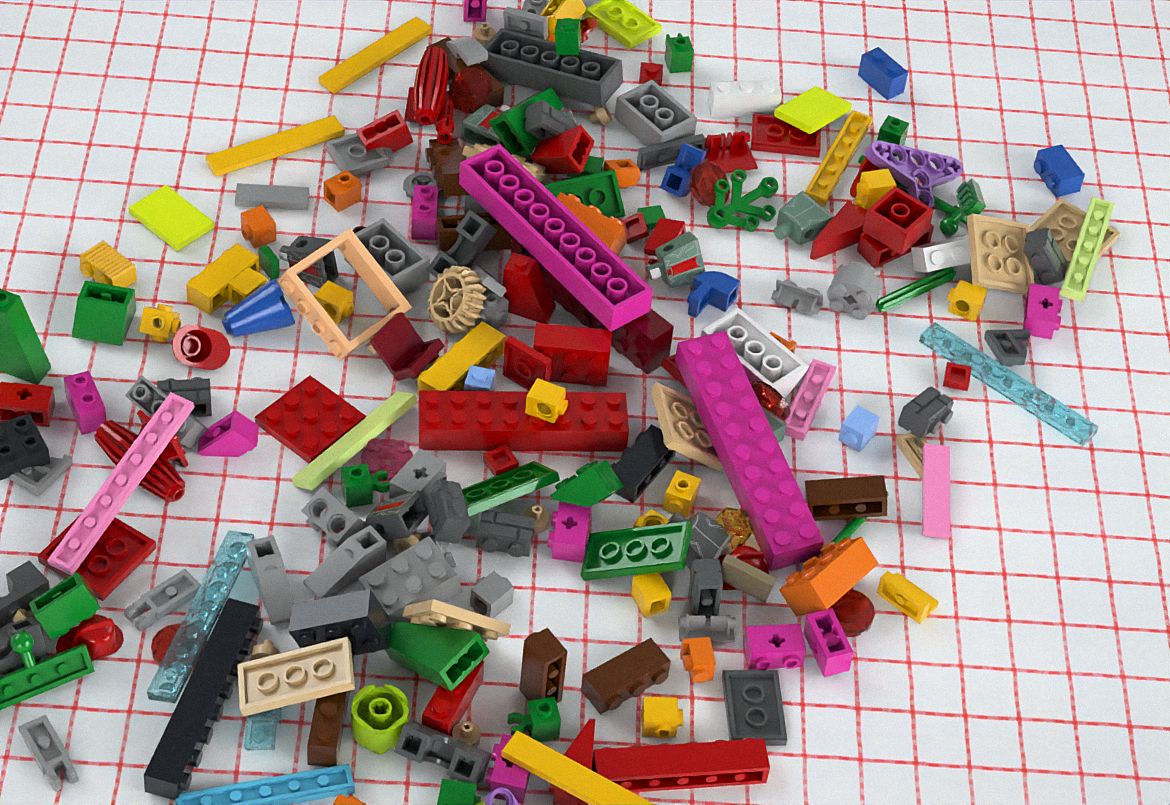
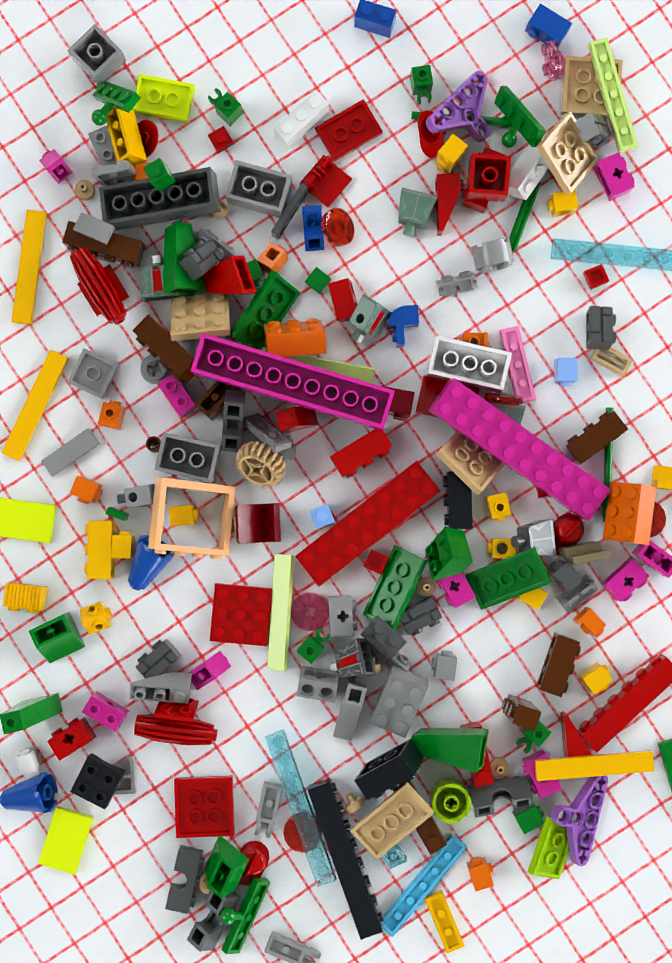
camera: 30 degrees left, 40 degrees up
(120, 484) = (186, 766): bright pink tile -> none
(200, 347) = (135, 618): red piece -> none
(270, 578) = (318, 754): light grey slope -> none
(386, 132) = (99, 346): red arch -> none
(445, 123) = (135, 313): red pin -> none
(449, 616) = (453, 721): tan plate -> none
(470, 90) = (124, 264): clear red tile -> none
(478, 348) = (297, 505): yellow brick -> none
(524, 363) = (346, 484): red tile -> none
(546, 401) = (383, 515): yellow brick -> none
(635, 227) = (315, 302): red plate -> none
(737, 524) = (548, 511): clear yellow panel -> none
(741, 204) = (365, 224): green plant -> none
(754, 706) = (638, 627): dark grey tile -> none
(812, 109) = (352, 94): neon yellow tile -> none
(838, 157) = (396, 125): yellow tile -> none
(936, 491) = (641, 386): bright pink tile -> none
(1009, 345) = (613, 225): dark grey wing -> none
(1039, 194) = (553, 60): none -> clear pink plate

